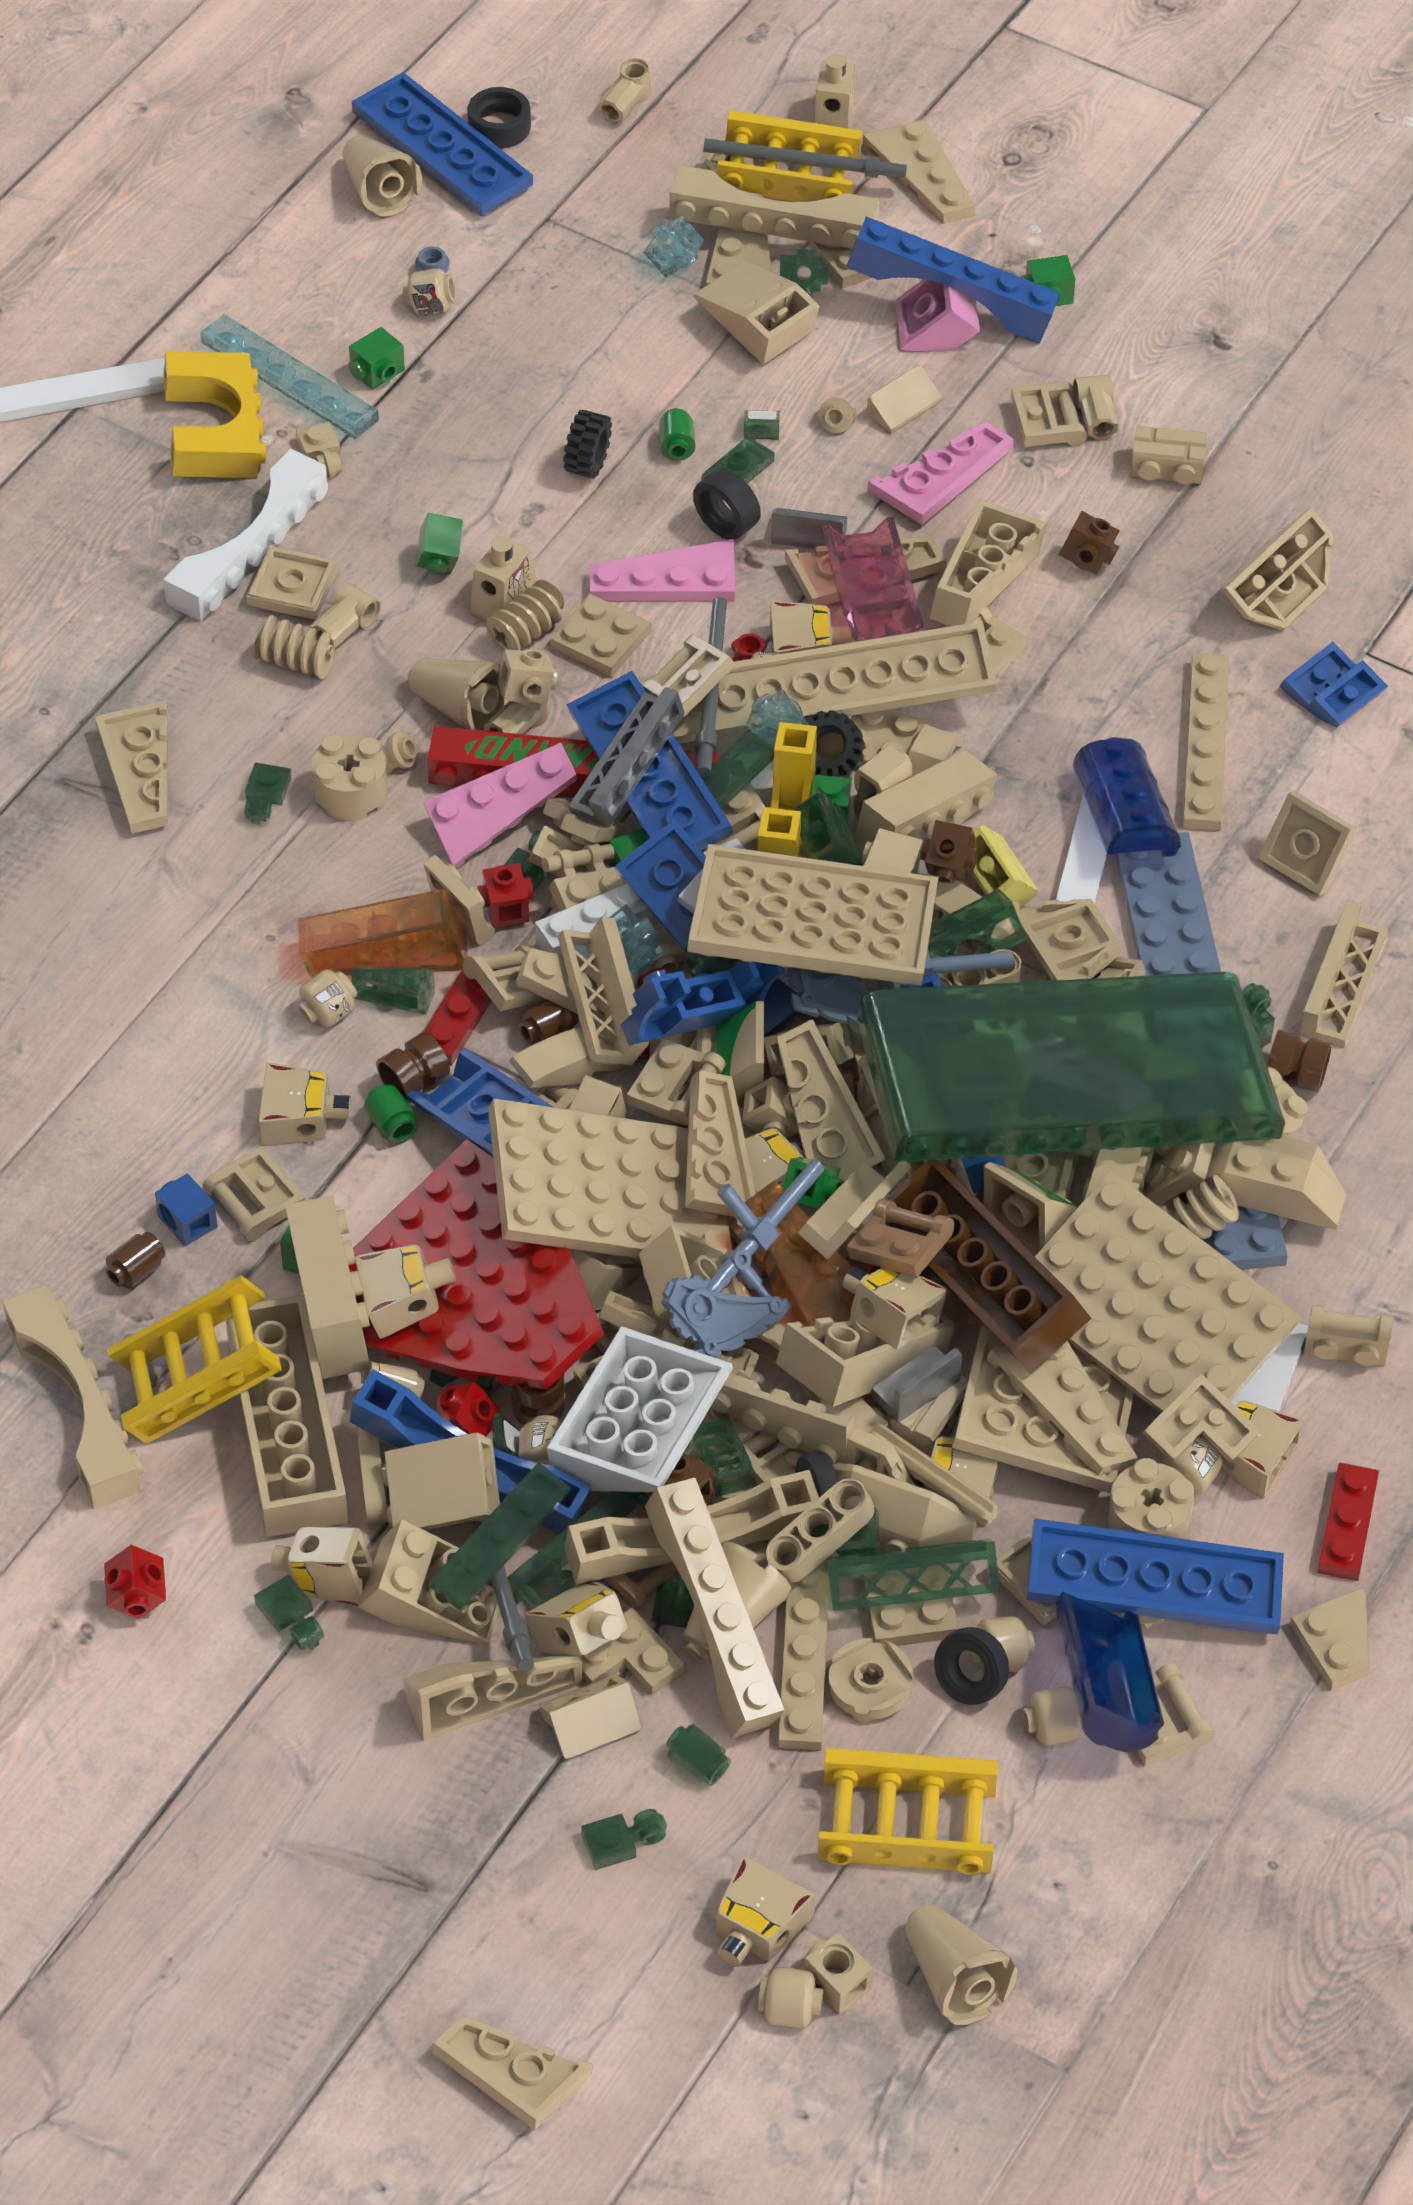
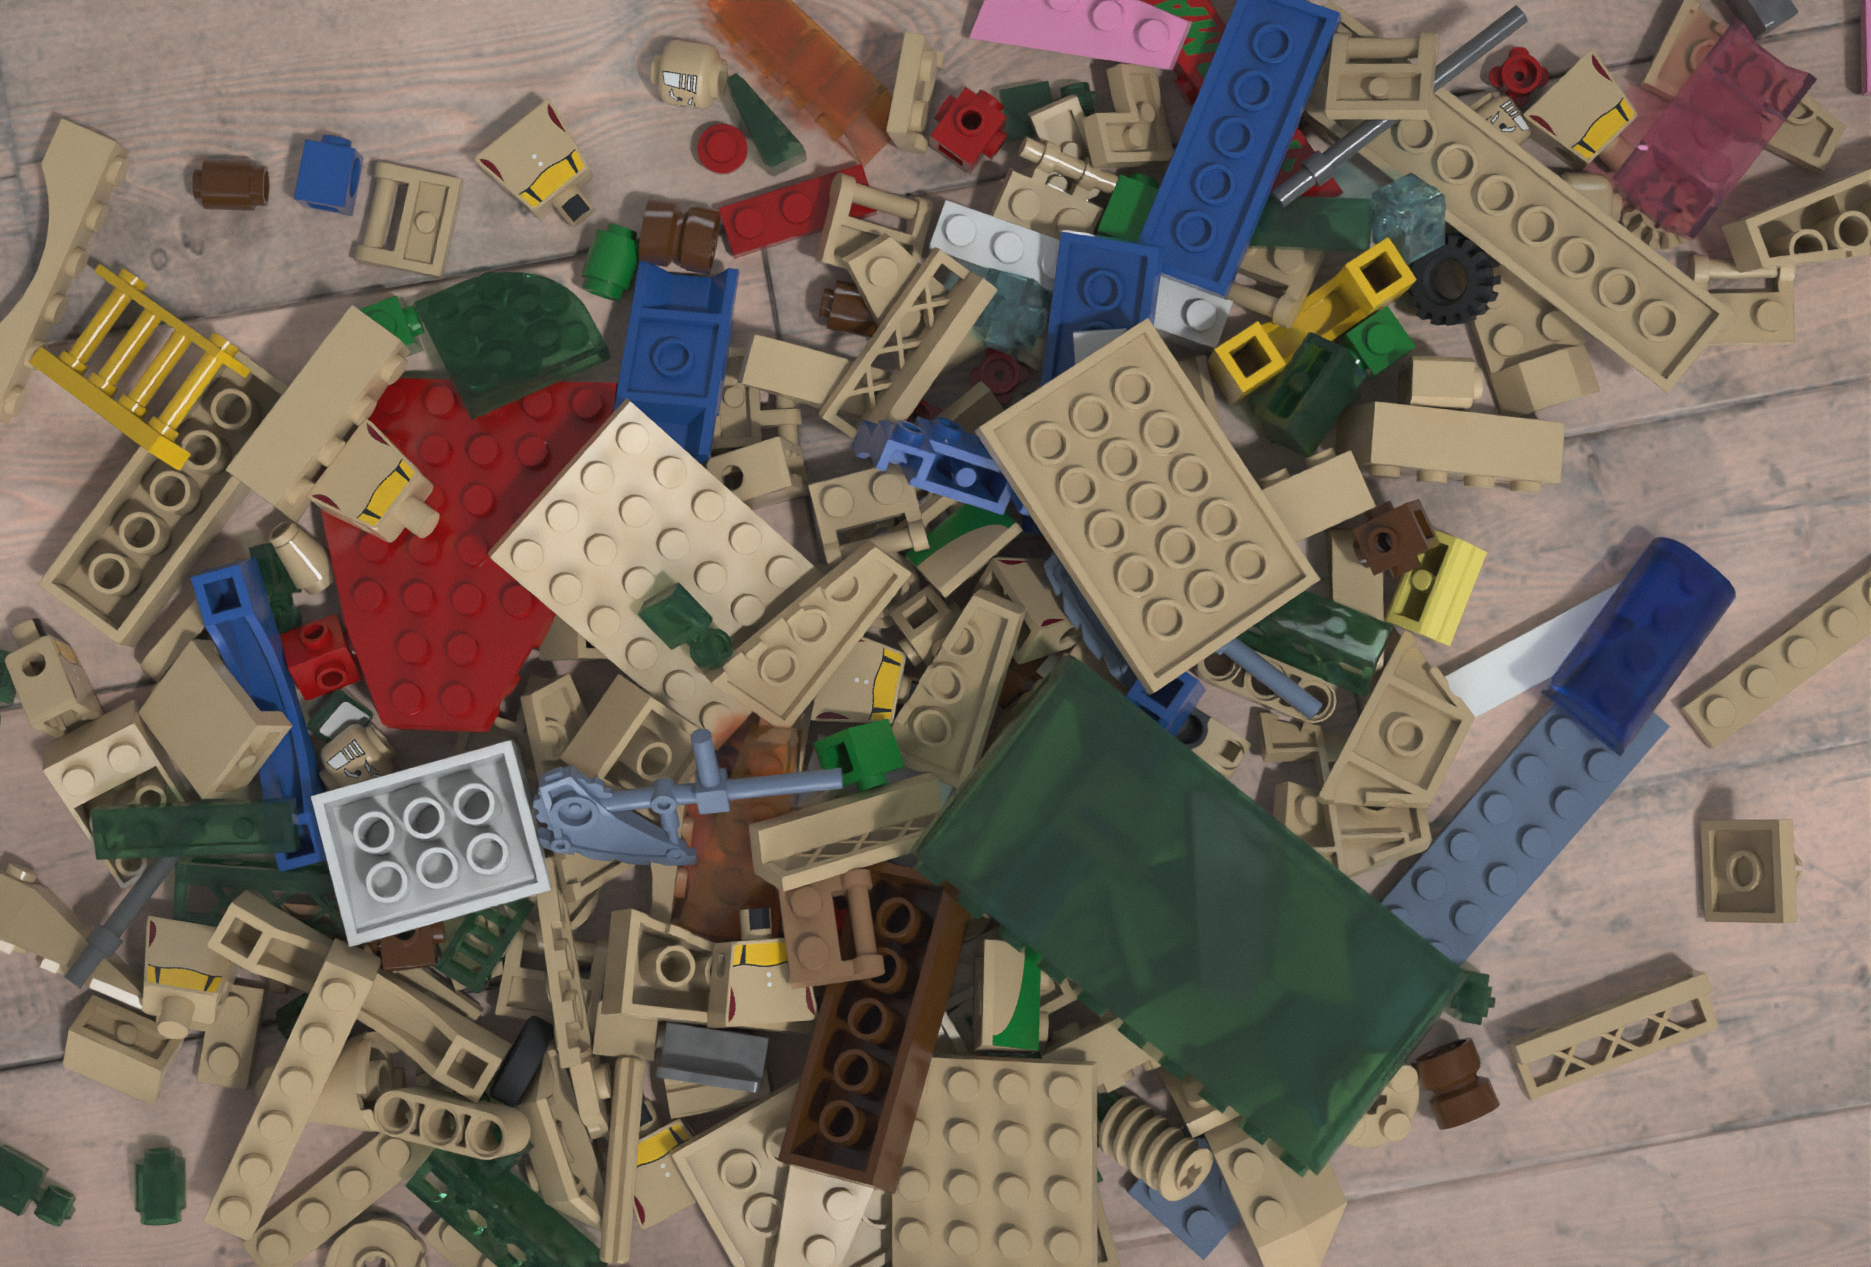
camera: 50 degrees right, 35 degrees up
(385, 1020) = (722, 149): none -> red plate
(387, 1176) = (509, 336): none -> clear green plate
(632, 761) = (1222, 122): flat silver fence -> none
(641, 1181) = (679, 620): none -> clear green plate

